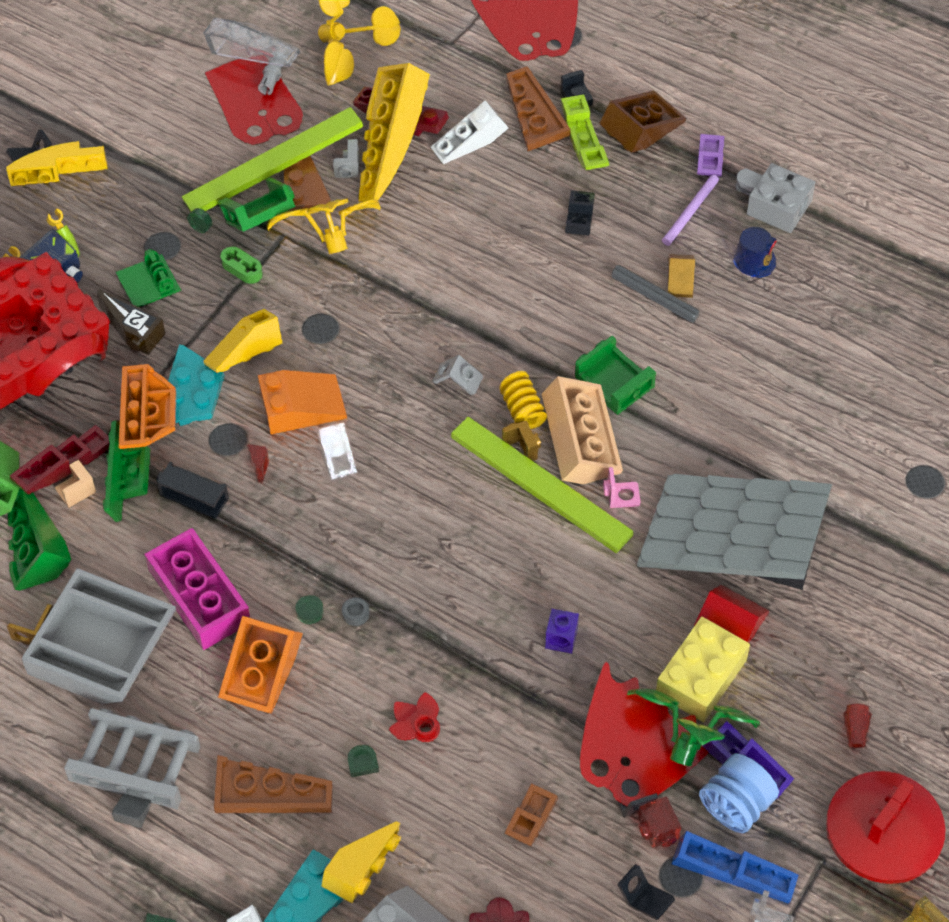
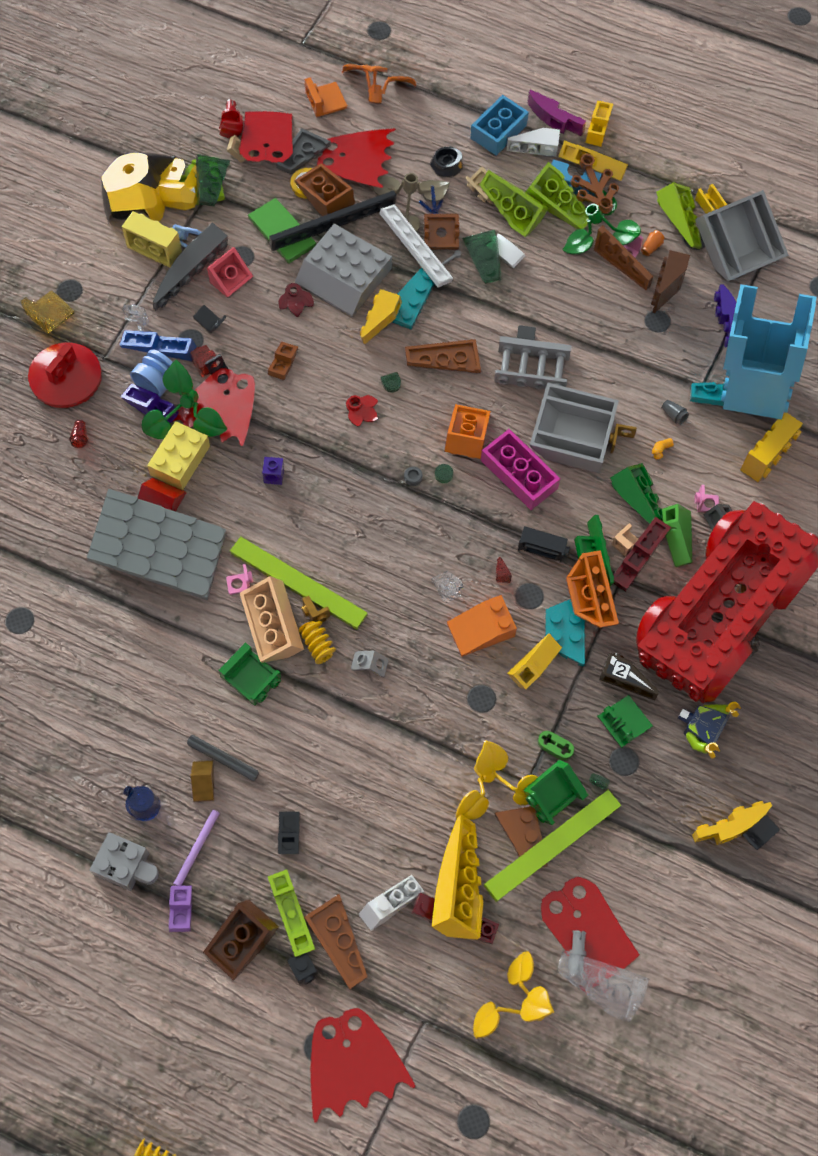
camera: 170 degrees right, 10 degrees up
(349, 164) = (487, 860): light grey bracket -> none

